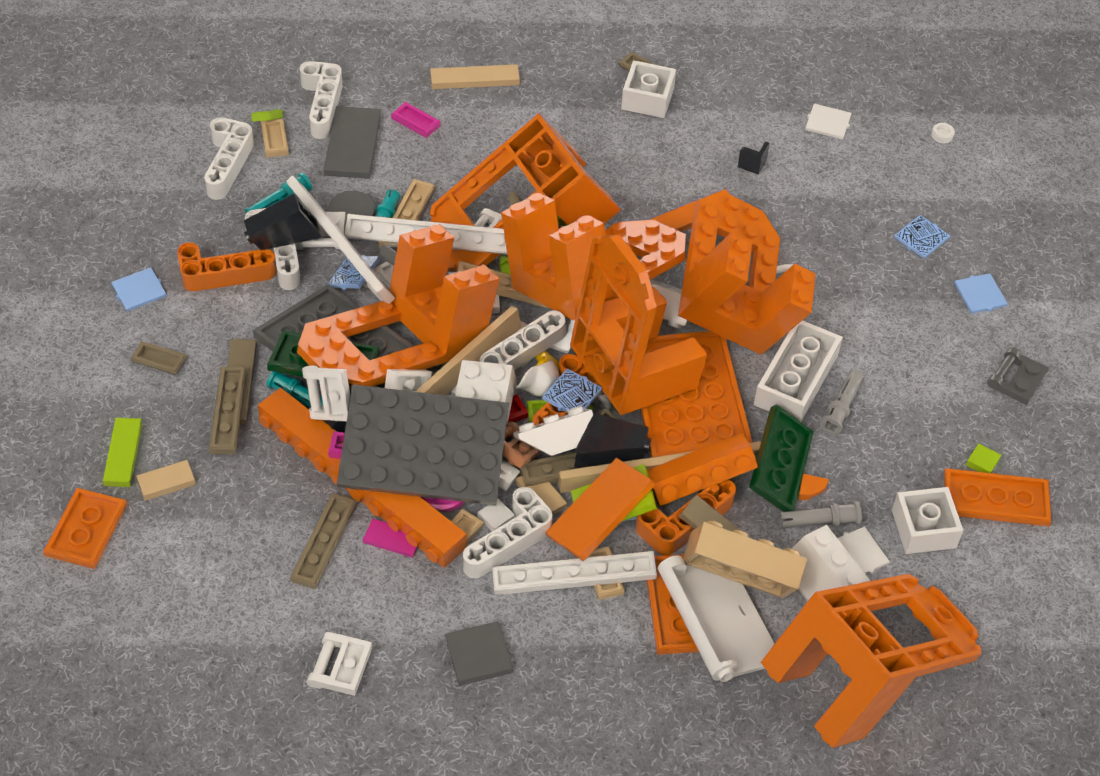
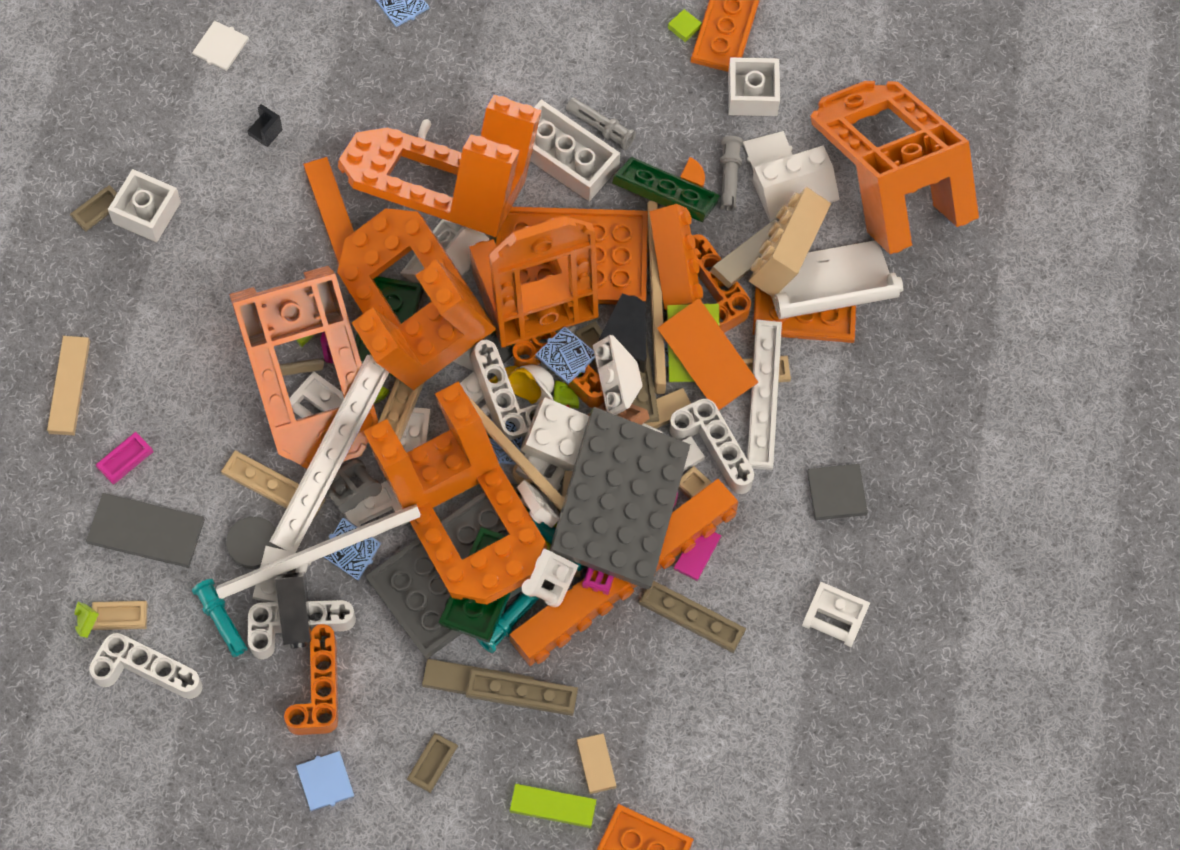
camera: 80 degrees left, 15 degrees up
(327, 82) = (74, 554): white beam -> none
(388, 205) = (262, 504): teal pin -> none

